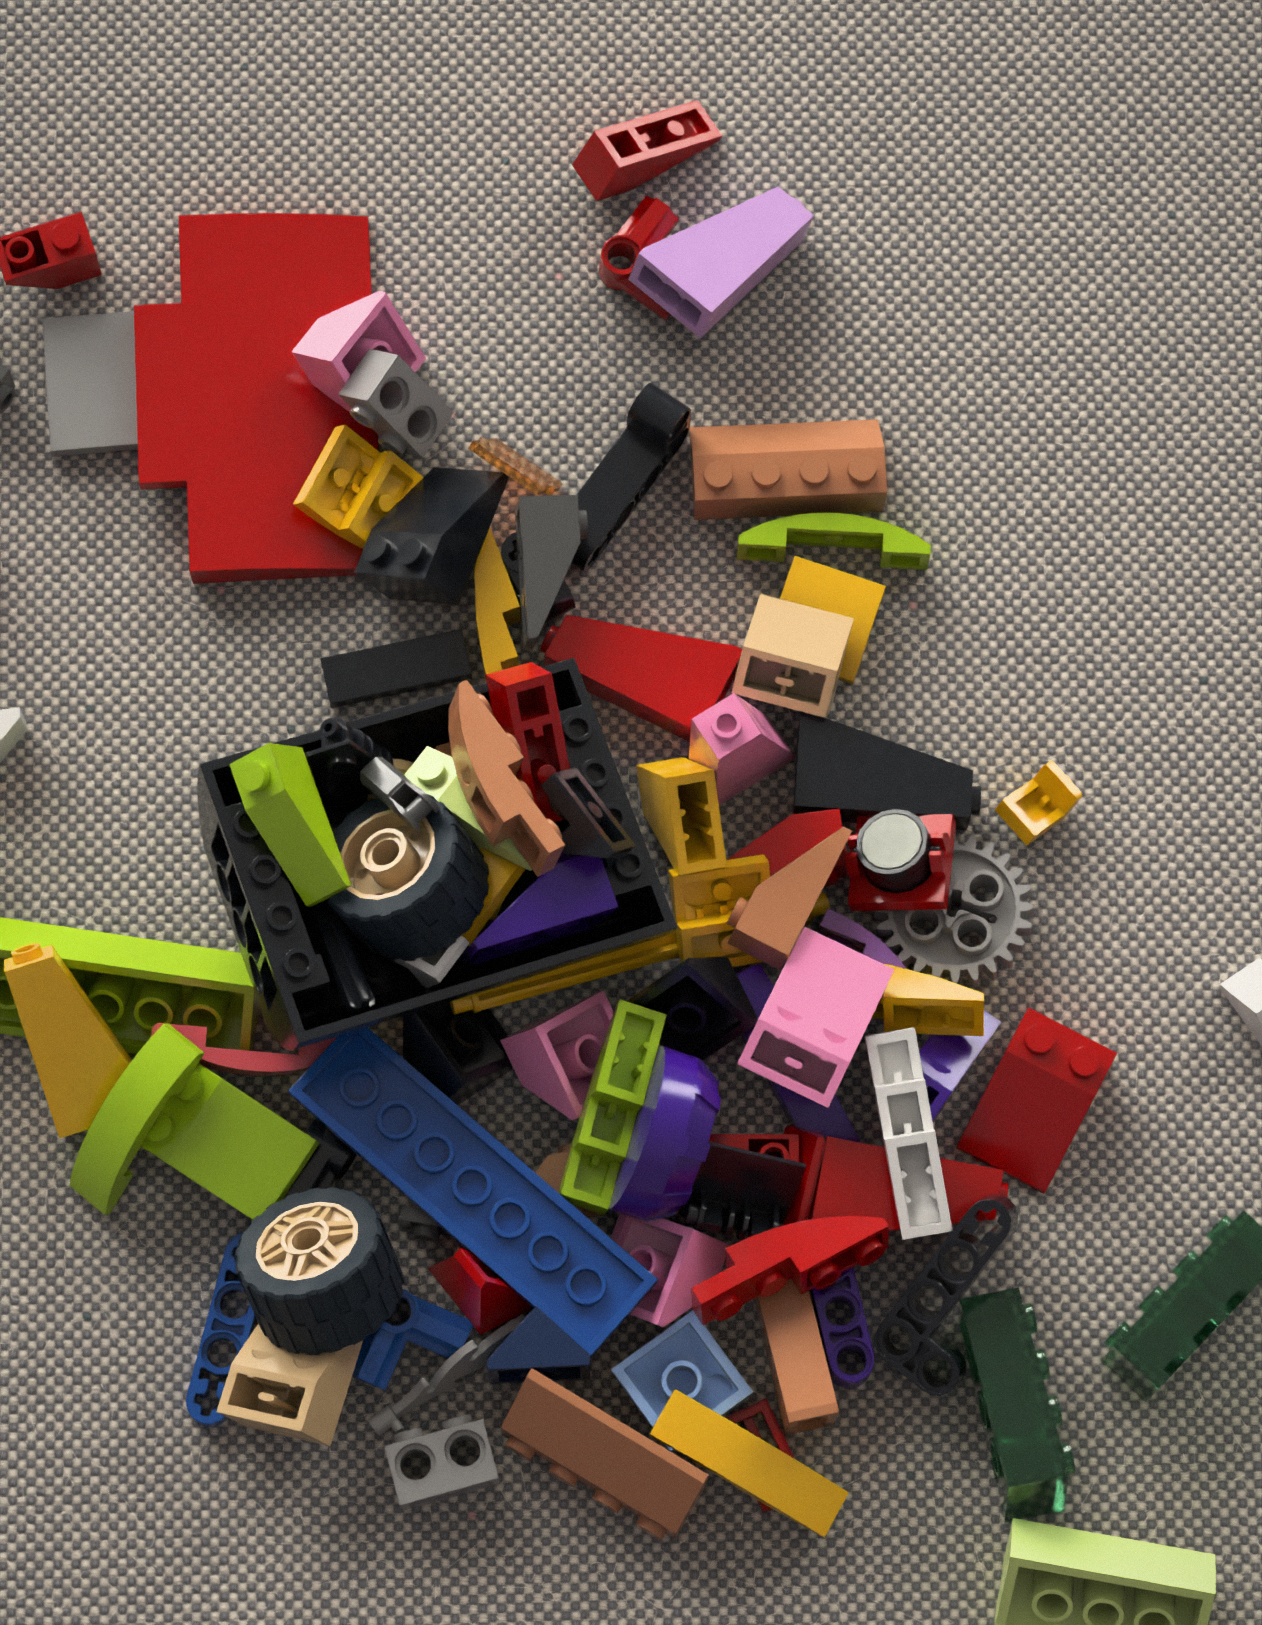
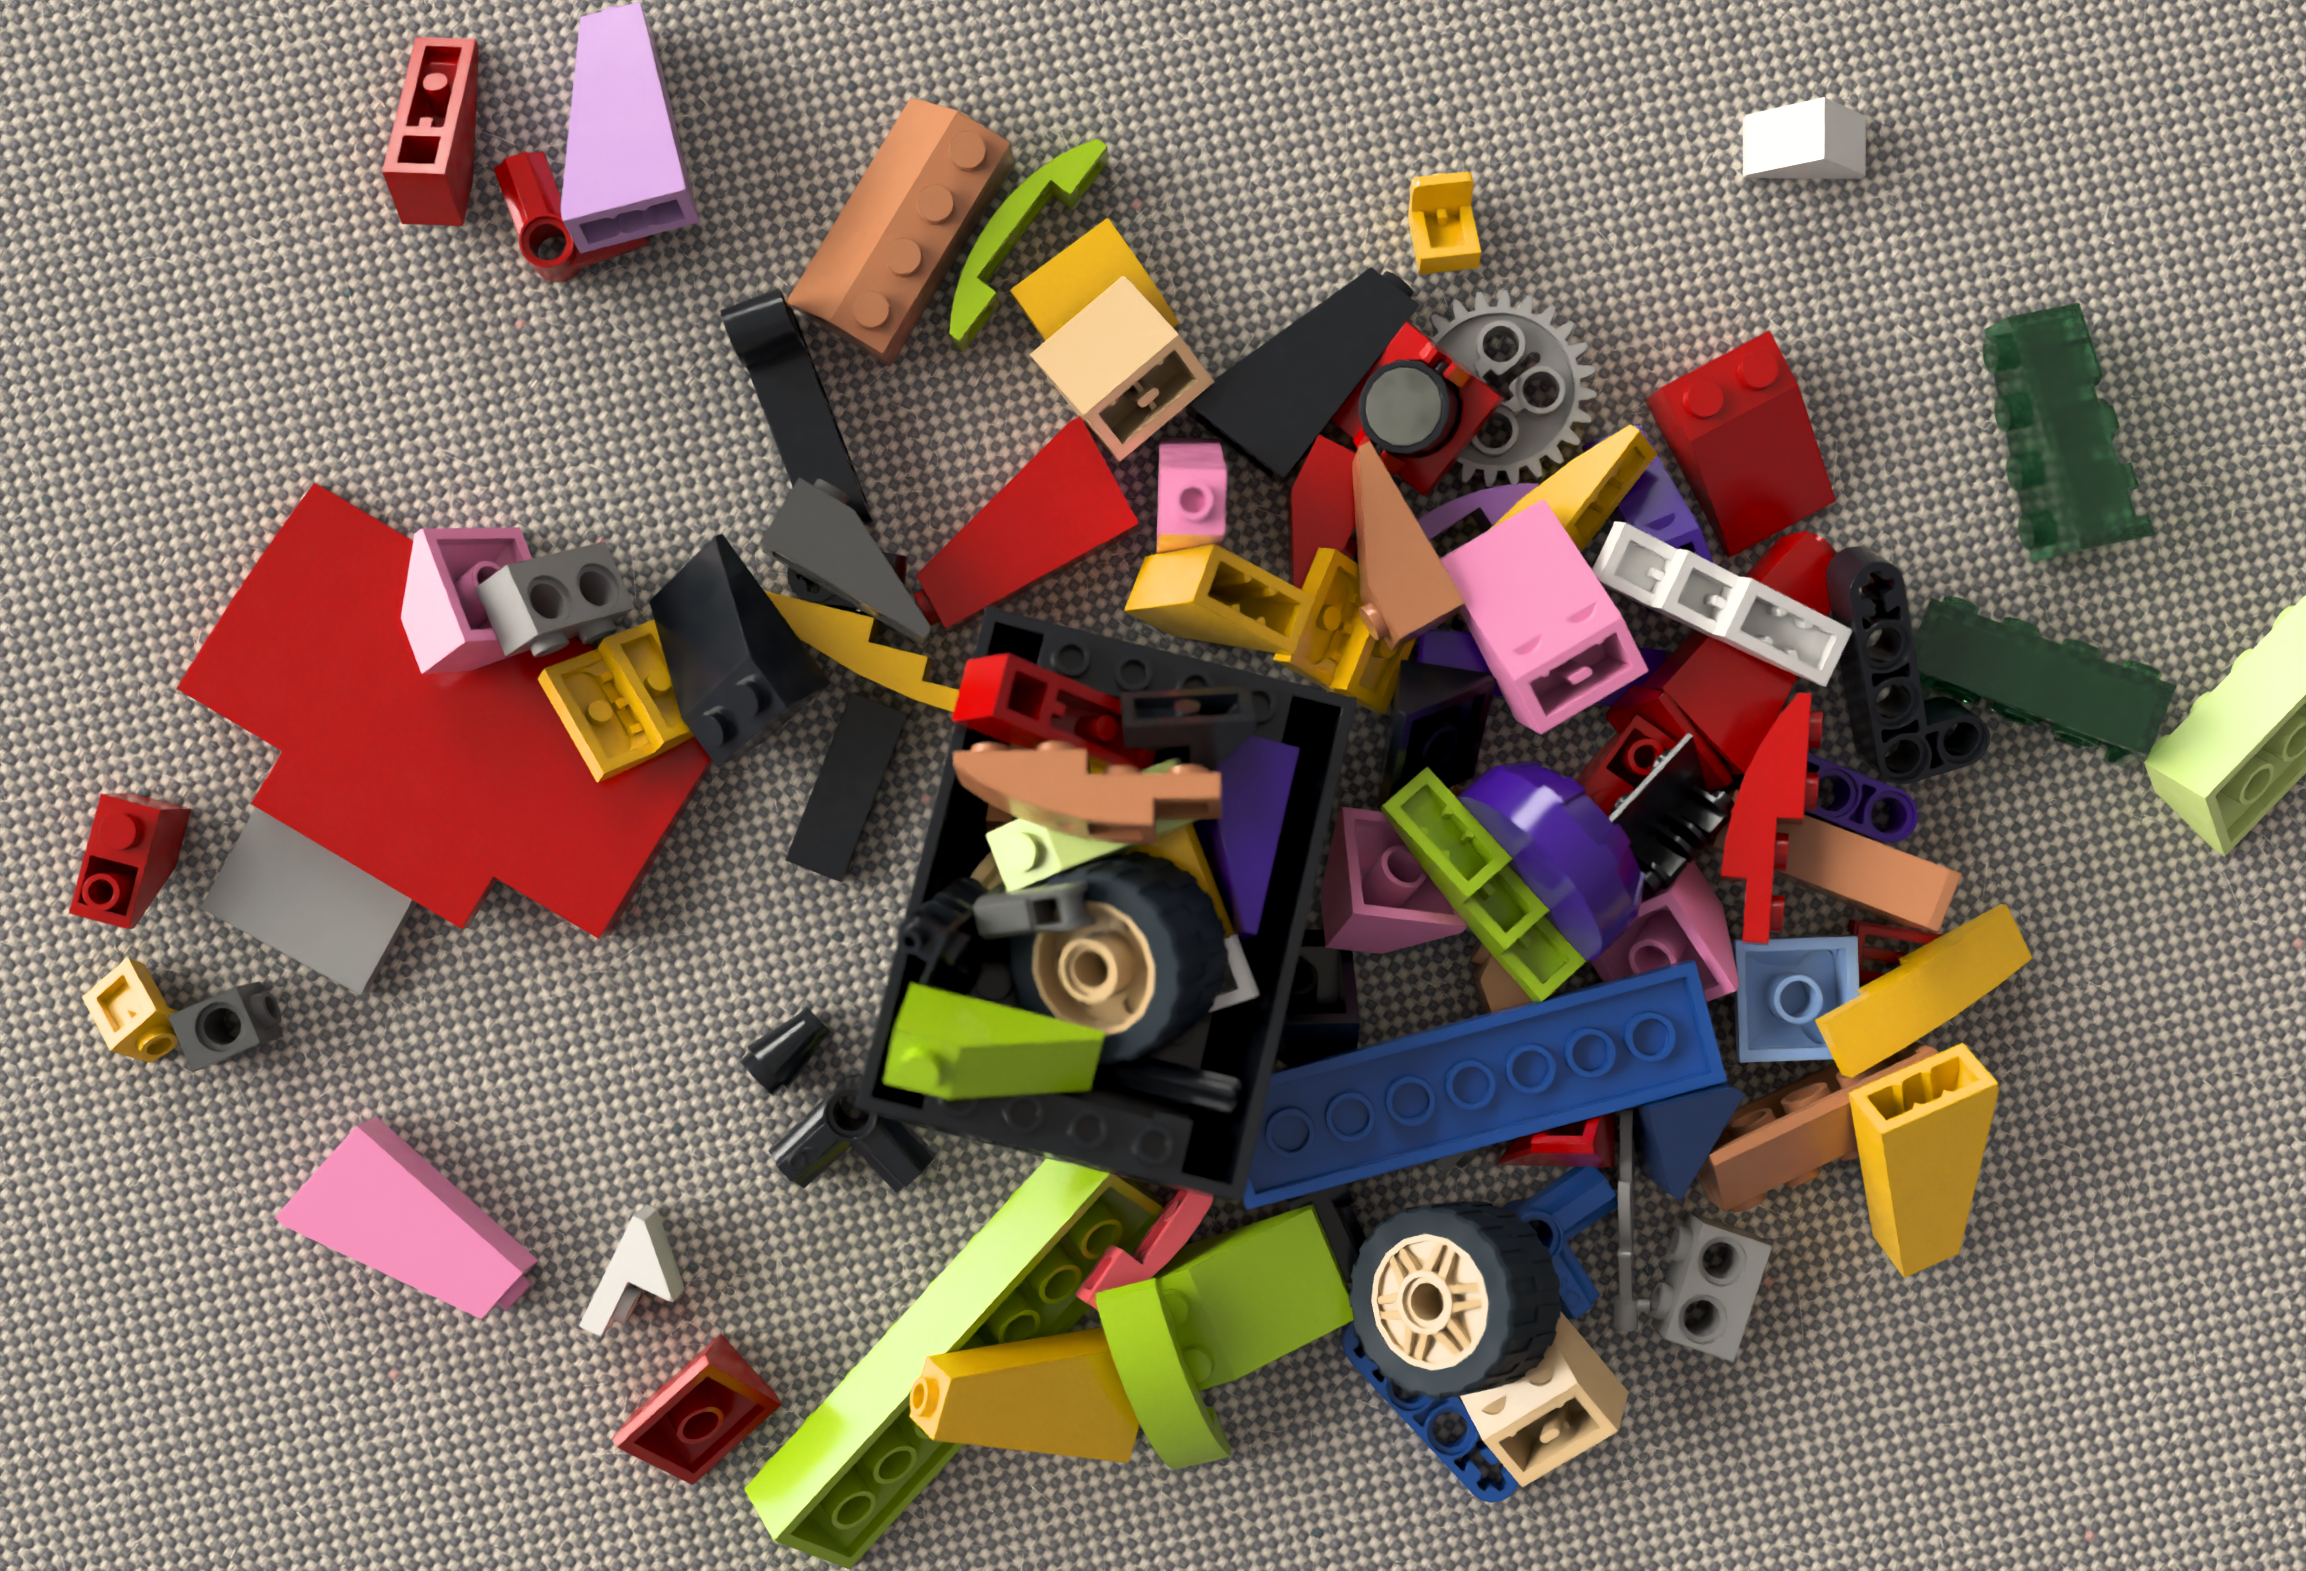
camera: 55 degrees left, 15 degrees up
(154, 801) = (827, 1133): none -> black piece
(191, 740) = (784, 1052): none -> black cone
(515, 466) = (711, 517): clear orange piece -> none
(632, 1519) = (1922, 1154): none -> yellow slope

